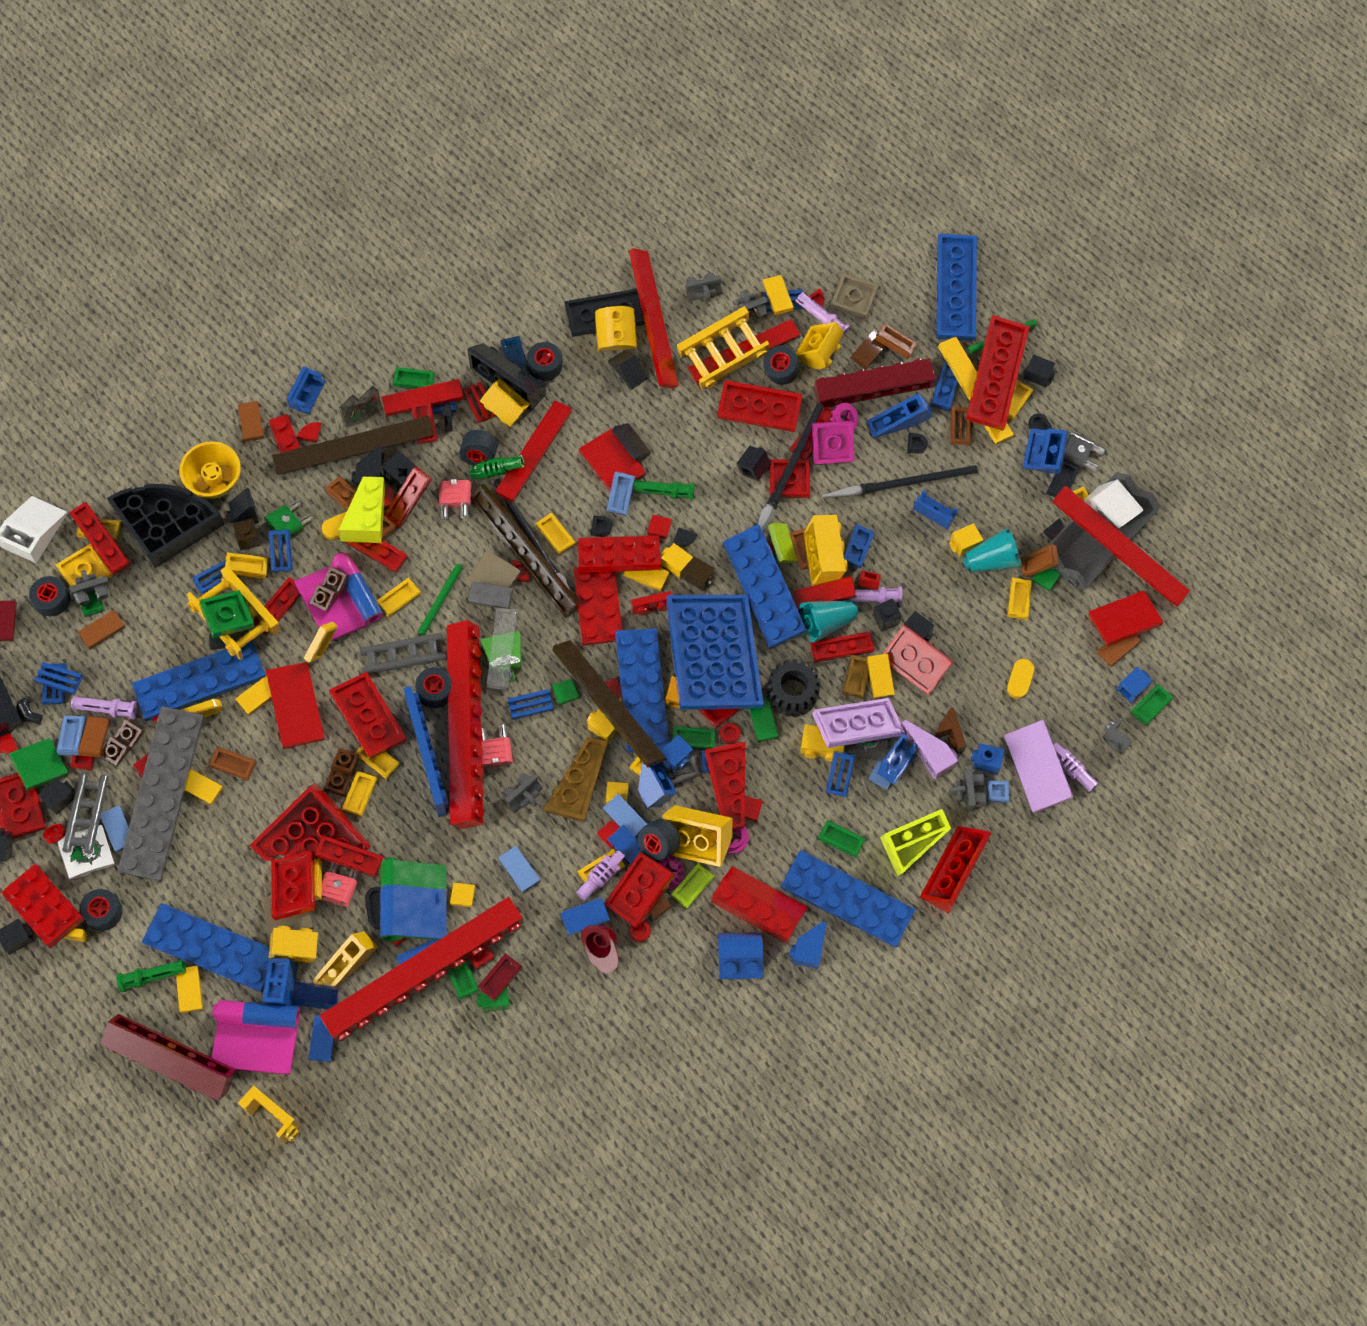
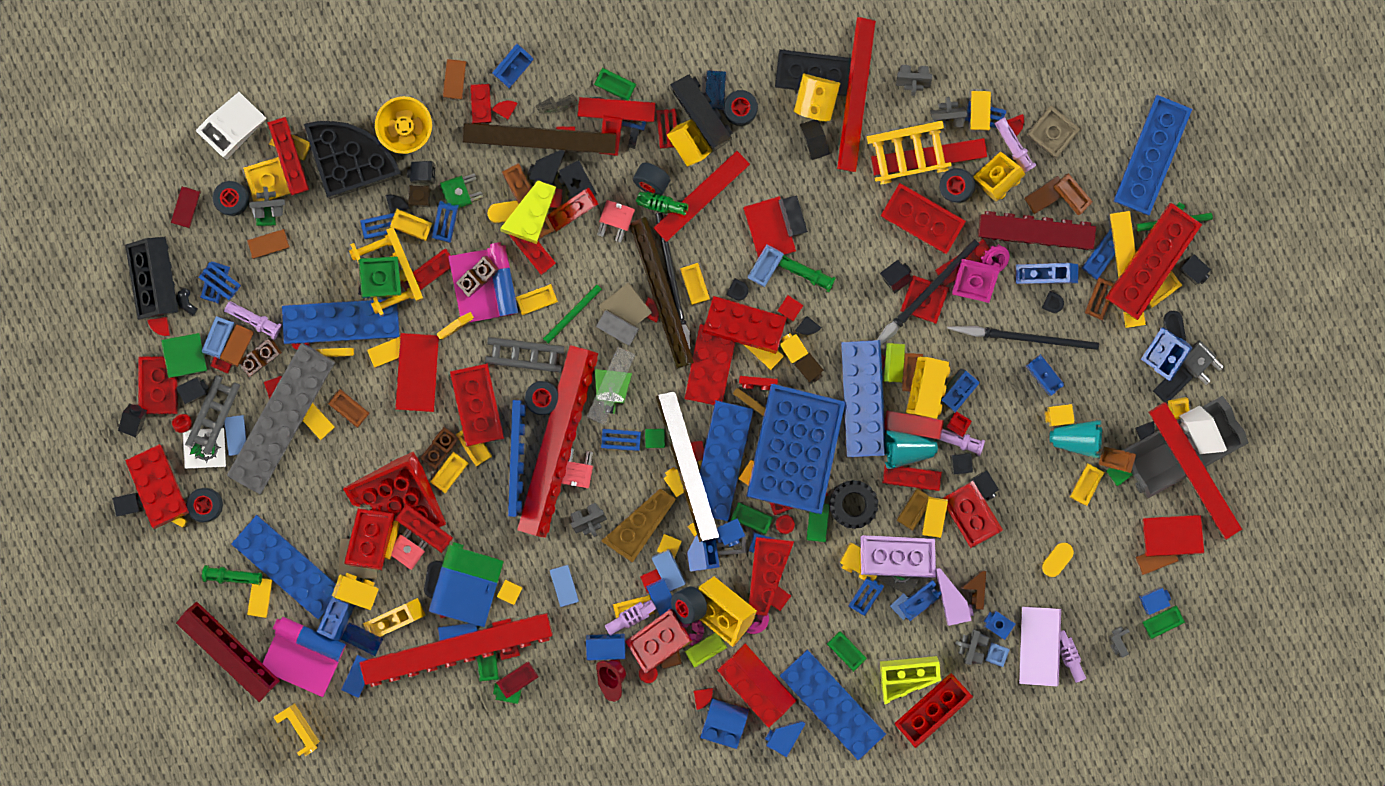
camera: 20 degrees right, 20 degrees up
(222, 549) = (396, 202): none -> black tile
(646, 622) = (749, 401): none -> pearl gold tile
(707, 936) = (702, 697): none -> red tile

